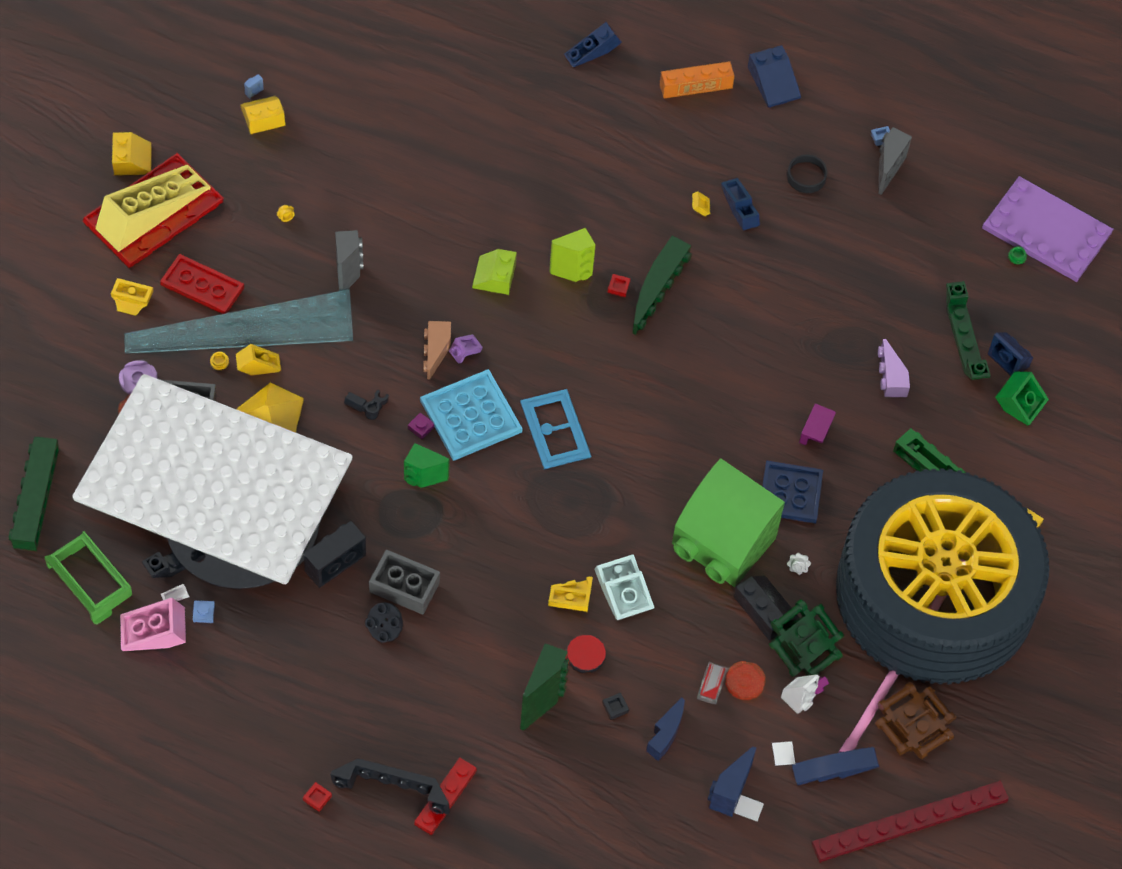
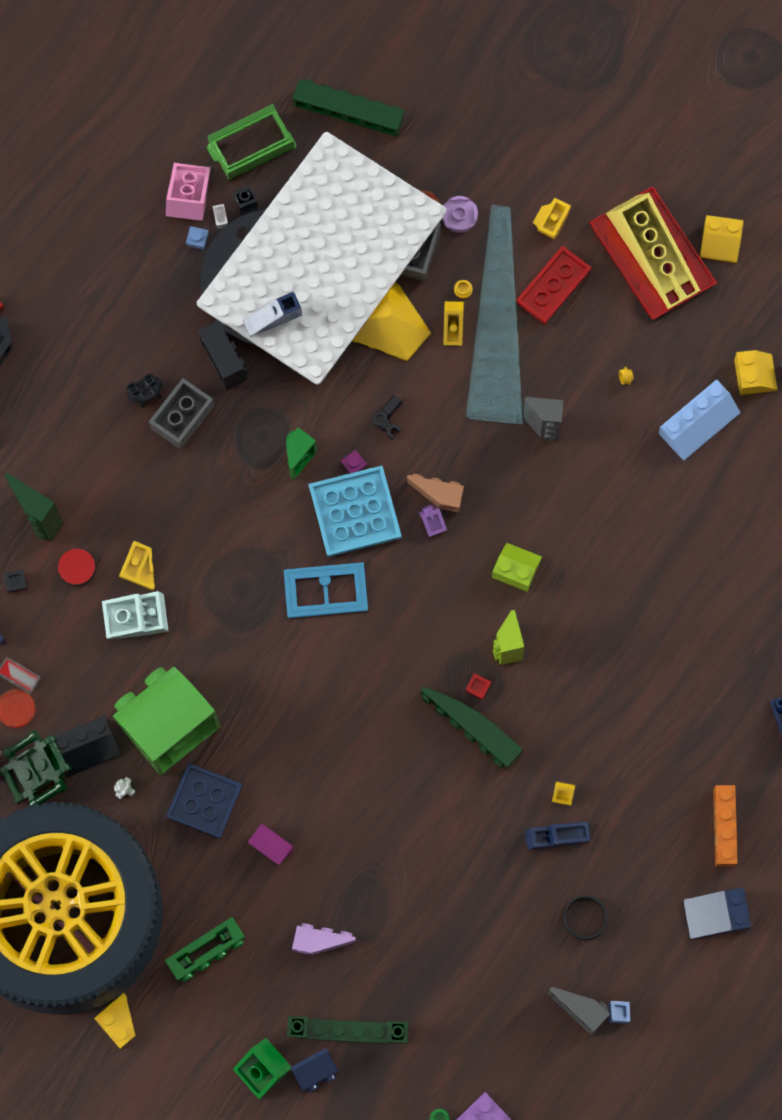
camera: 110 degrees right, 15 degrees up
(290, 498) = (273, 314): none -> slope
(317, 150) = (699, 420): none -> light blue slope

